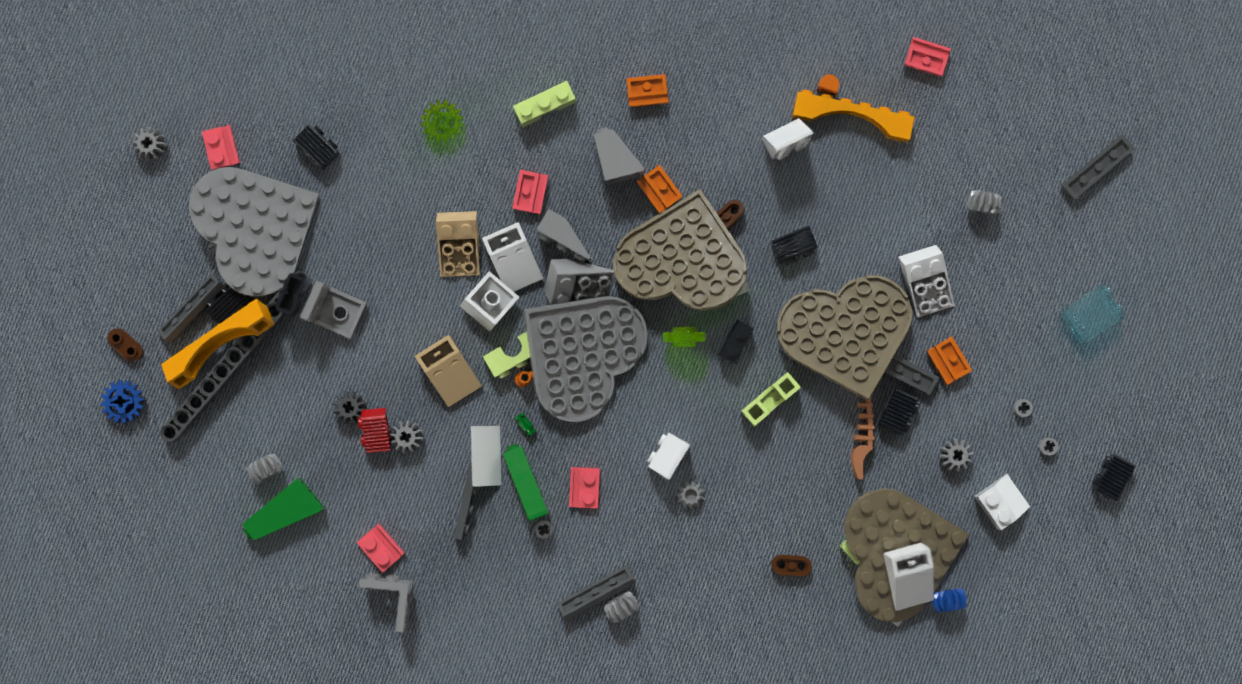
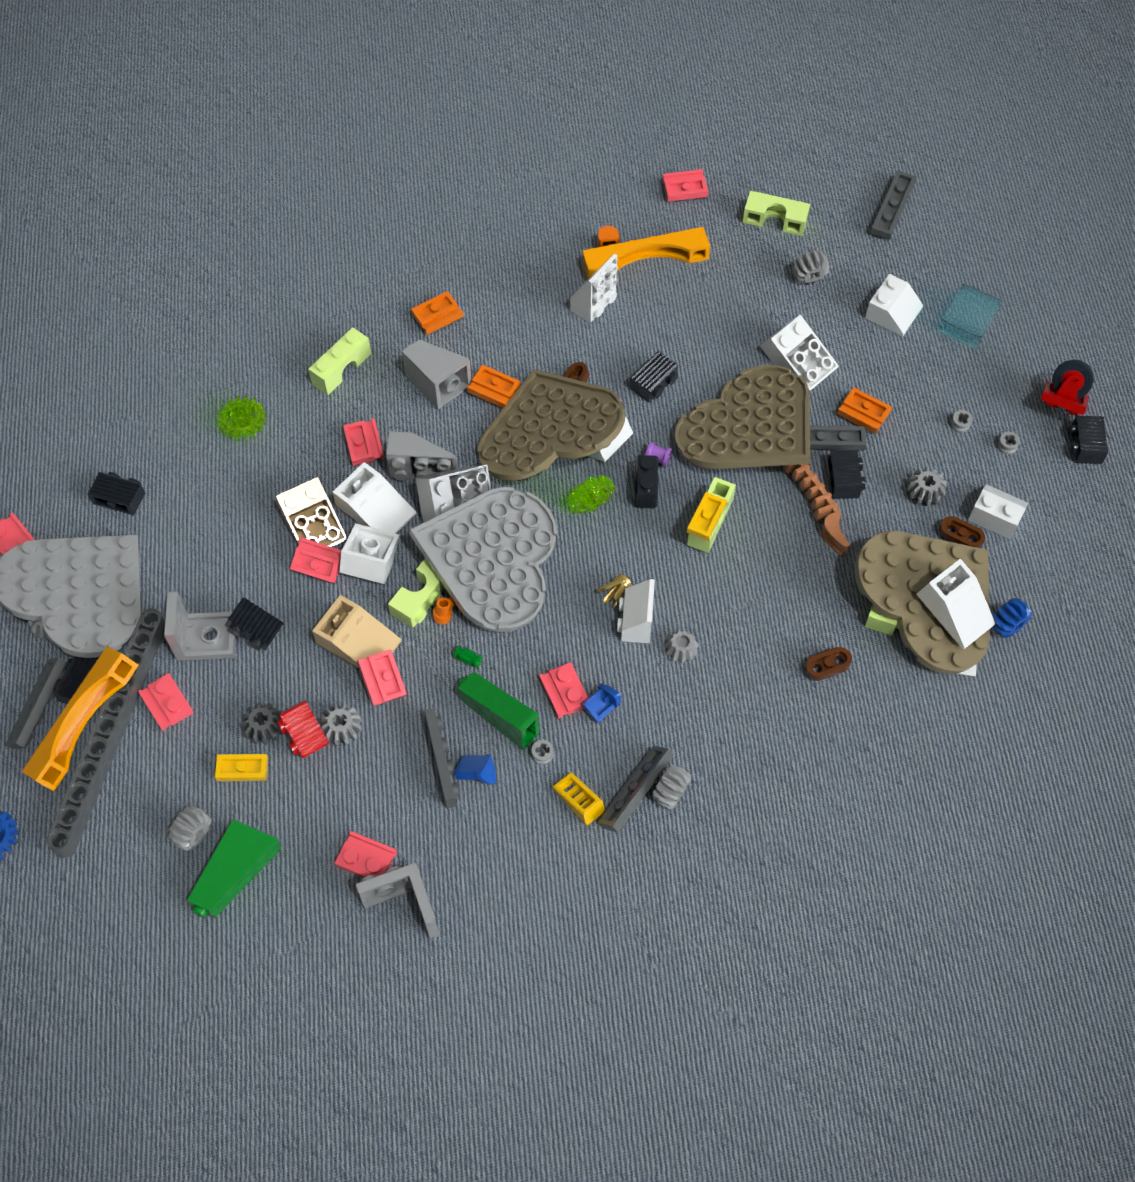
camera: 30 degrees left, 25 degrees down
(286, 351) = (166, 702): none -> coral plate
(294, 289) = (147, 625): black brick -> none
(320, 435) = (241, 767): none -> yellow plate
(375, 323) = (253, 624): none -> black brick
(447, 287) = (317, 560): none -> coral plate
(452, 414) = (381, 678): none -> coral plate
(486, 455) = (440, 702): white sticker -> none
(488, 521) = (476, 767): none -> blue tile
(557, 594) = (589, 809): none -> yellow slope
(604, 513) = (601, 702): none -> blue tile
(668, 421) = (619, 585): none -> pearl gold piece
(759, 320) = (662, 453): none -> medium lavender bush
(760, 408) = (706, 516): none -> yellow plate
(958, 508) = (962, 532): none -> reddish brown plate
(1003, 135) = (791, 212): none -> yellowish green arch
(1034, 273) = (894, 305): none -> white slope
(1121, 430) = (1069, 387): none -> plate

